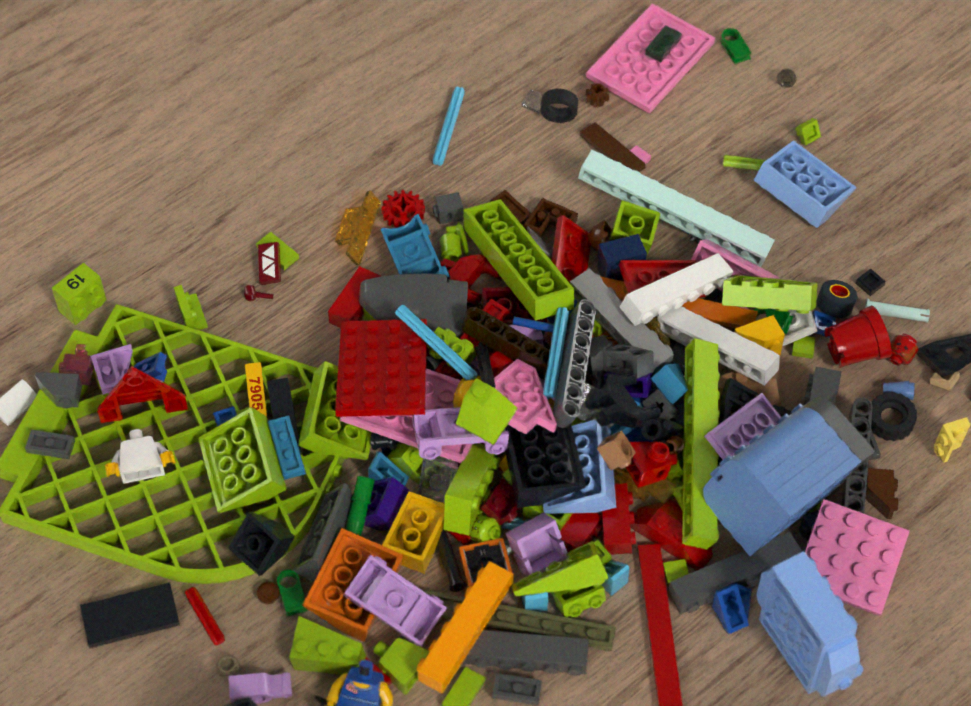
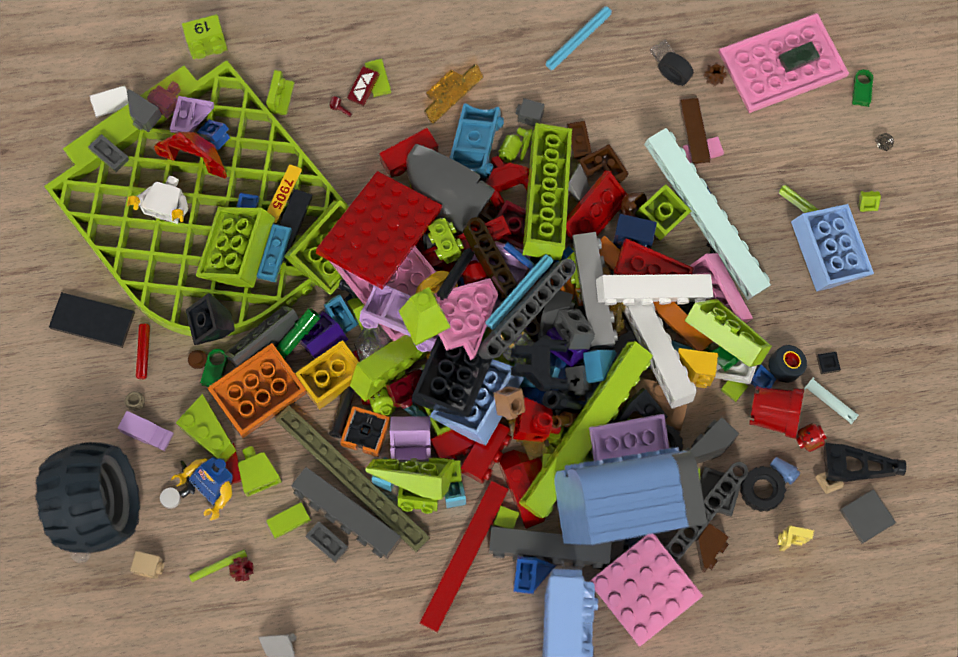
camera: 30 degrees right, 15 degrees up
(394, 205) = (490, 88): red gear -> none
(395, 600) = (274, 424): lavender piece -> none
(436, 343) = (432, 232): medium azure axle -> none
(465, 627) = (313, 474): light orange brick -> none

